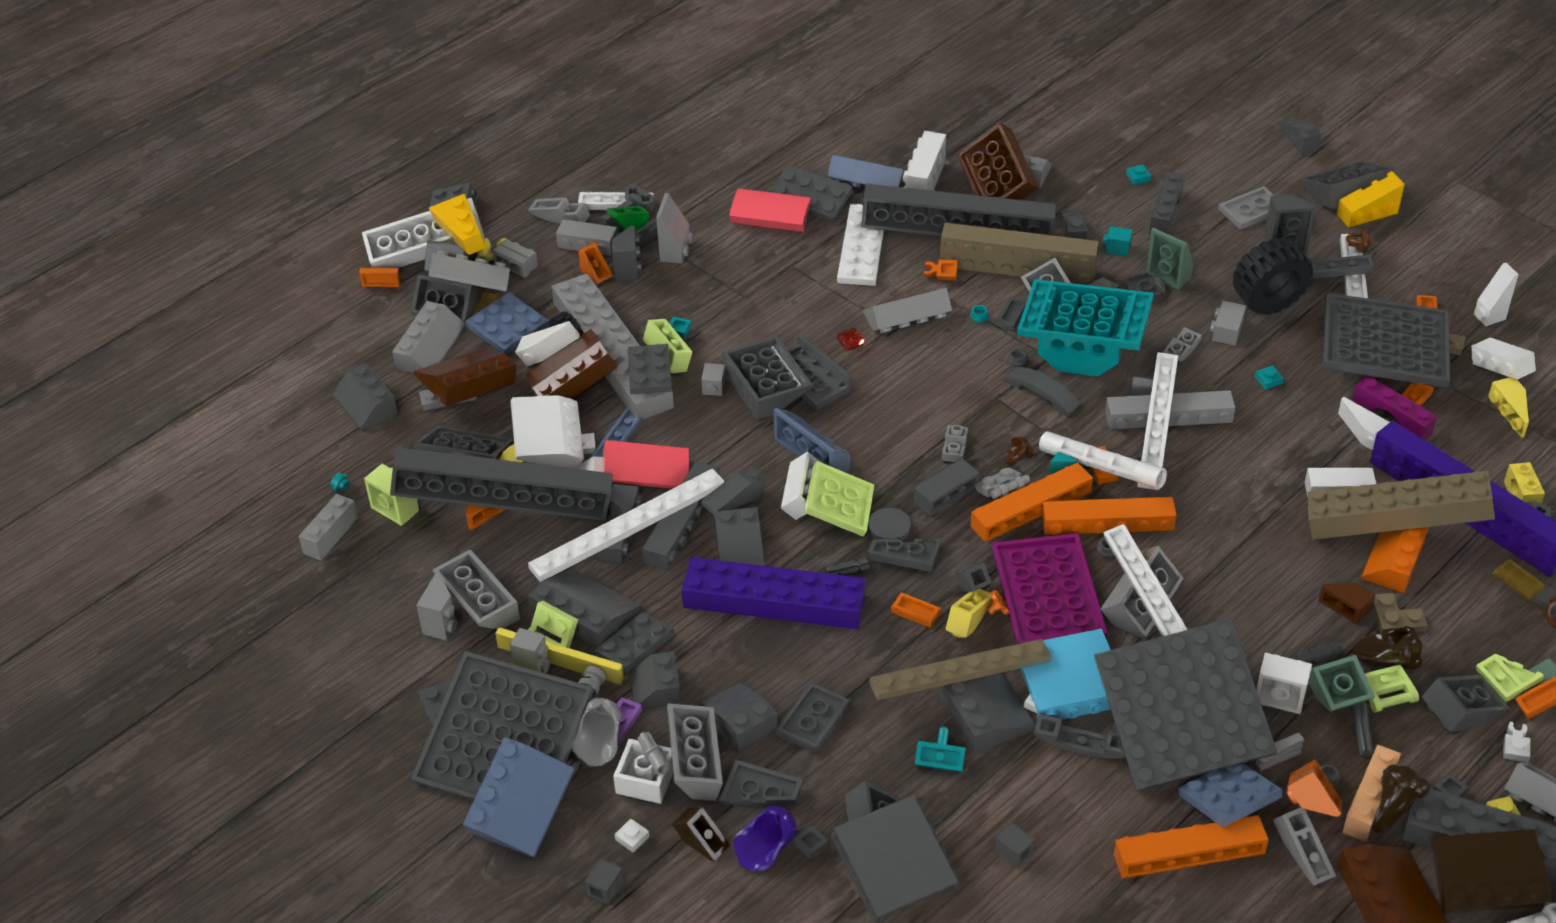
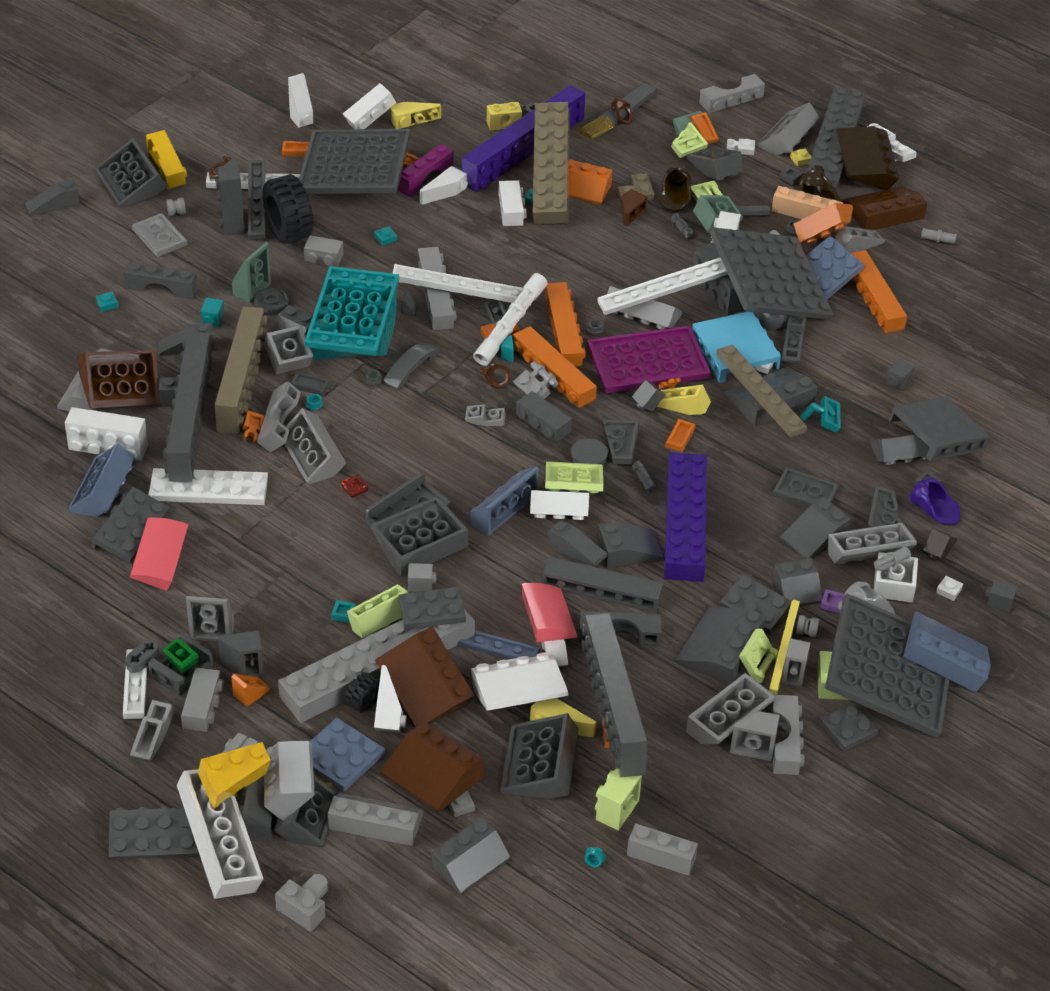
camera: 100 degrees left, 0 degrees up
(347, 293) = (303, 903): none -> light grey brick
(380, 277) = (271, 877): orange tile -> none
(416, 640) = (787, 754): none -> light grey arch
(625, 525) = (635, 611): white plate -> none
(956, 284) = (282, 401): none -> light grey arch

